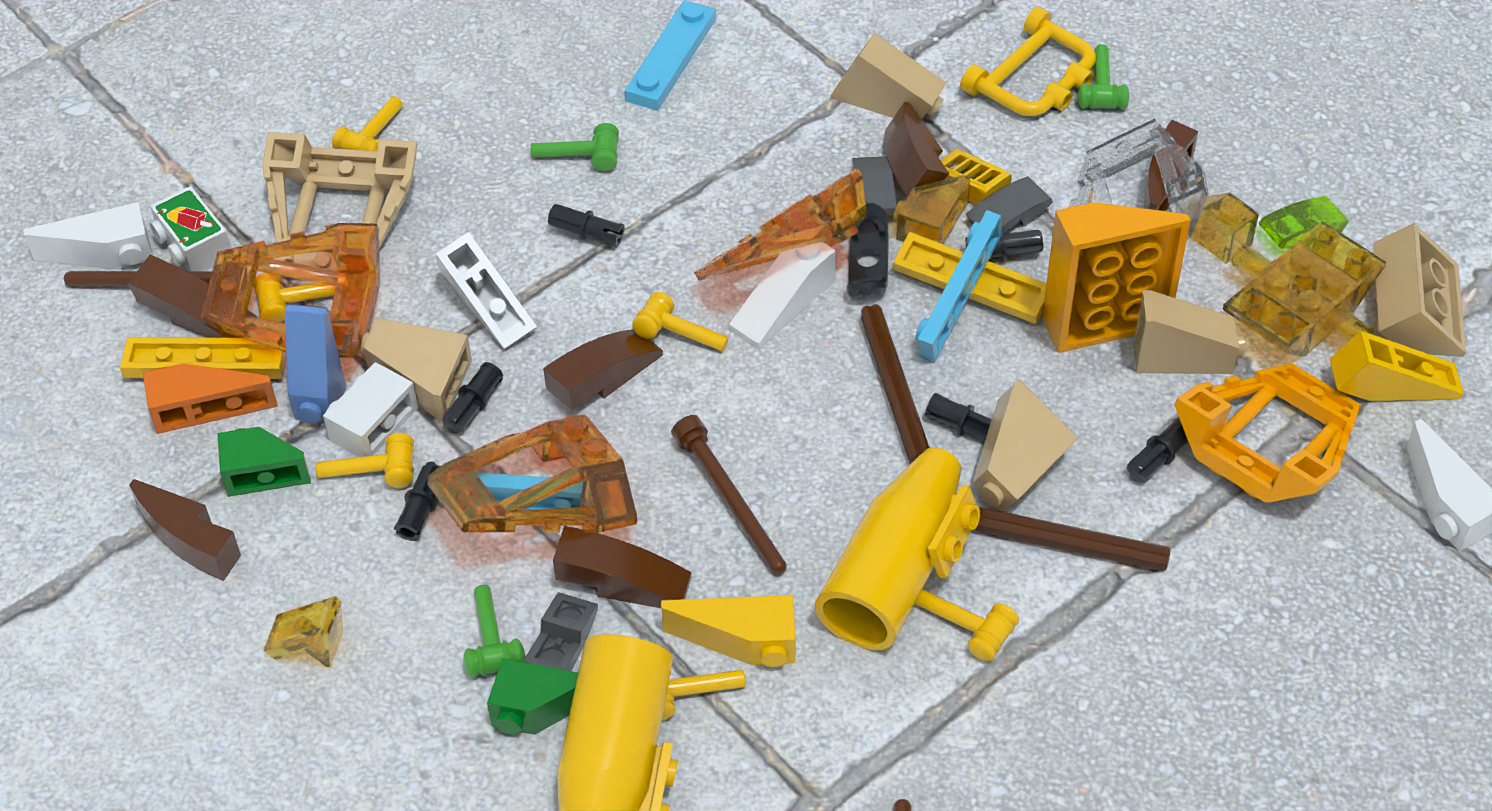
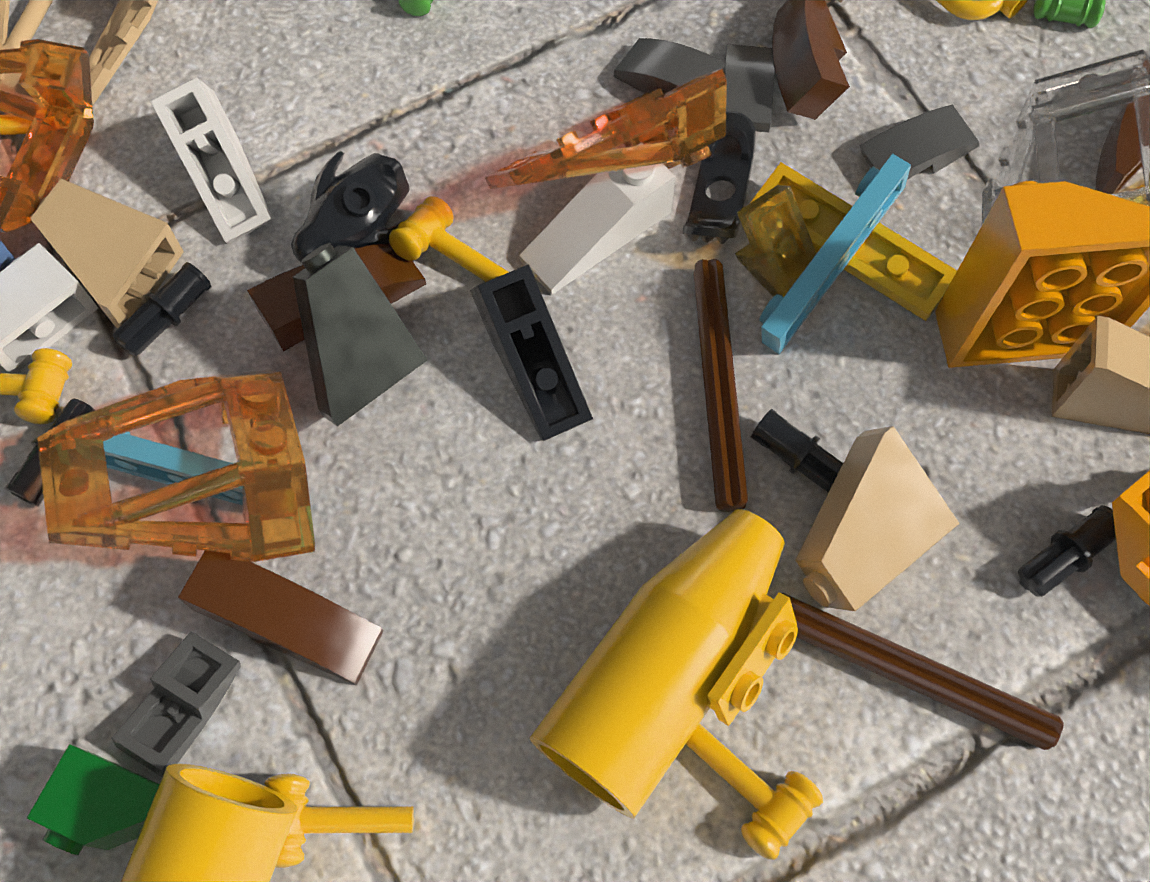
camera: 10 degrees right, 15 degrees up
(488, 658) = (83, 716): bright green piece -> none
(585, 224) = (369, 85): black axle -> none
(599, 306) = (353, 205): none -> black animal
(625, 384) = (350, 333): none -> pearl dark grey slope
(692, 436) = (430, 416): reddish brown piece -> none
(744, 628) = (435, 745): yellow slope -> none
(754, 380) = (531, 351): none -> black slope
(805, 178) = (663, 65): none -> dark grey slope
(917, 281) = (777, 240): none -> clear yellow slope
(932, 209) = (817, 133): clear yellow slope -> none
(991, 175) = (876, 111): yellow slope -> none
(1017, 244) = (921, 200): black axle -> none

